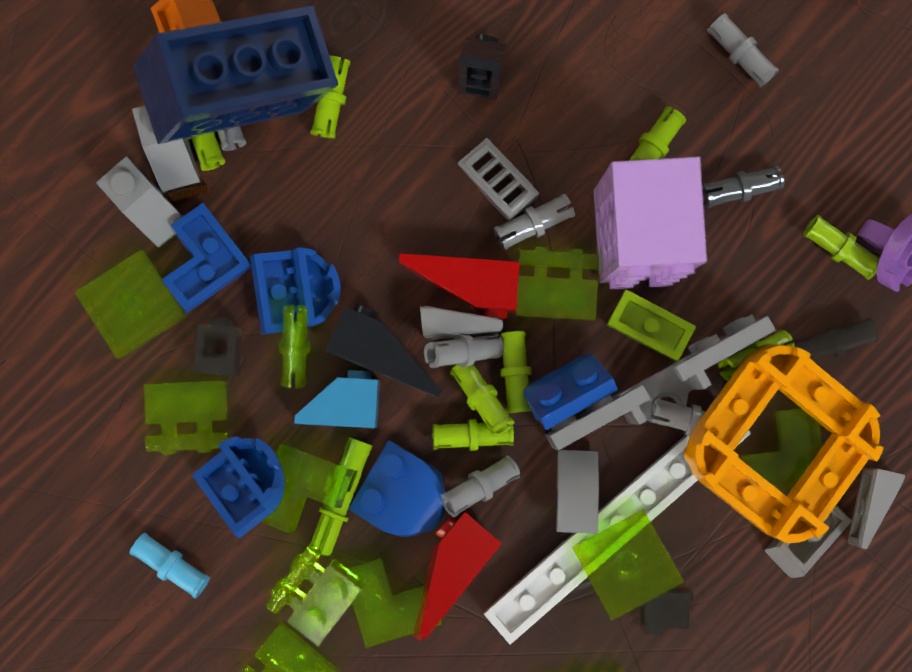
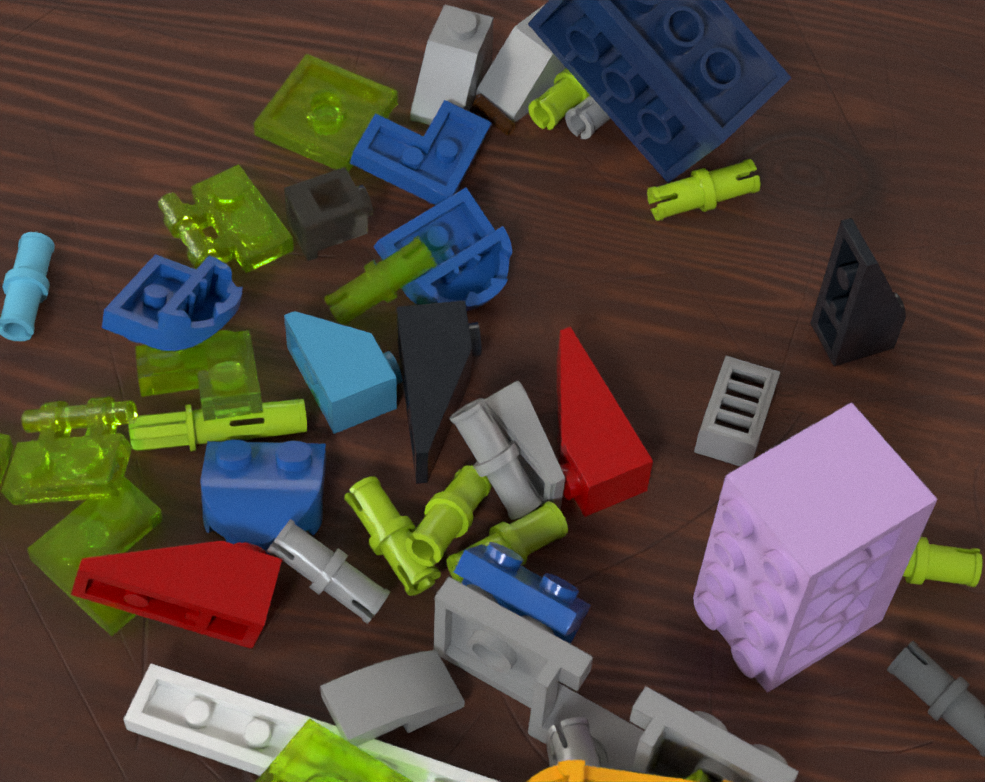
camera: 60 degrees right, 30 degrees down
(534, 221) = (697, 459): light grey pin -> none
(557, 297) = (638, 543): clear neon green plate -> none
(651, 325) = (681, 662): lime plate -> none

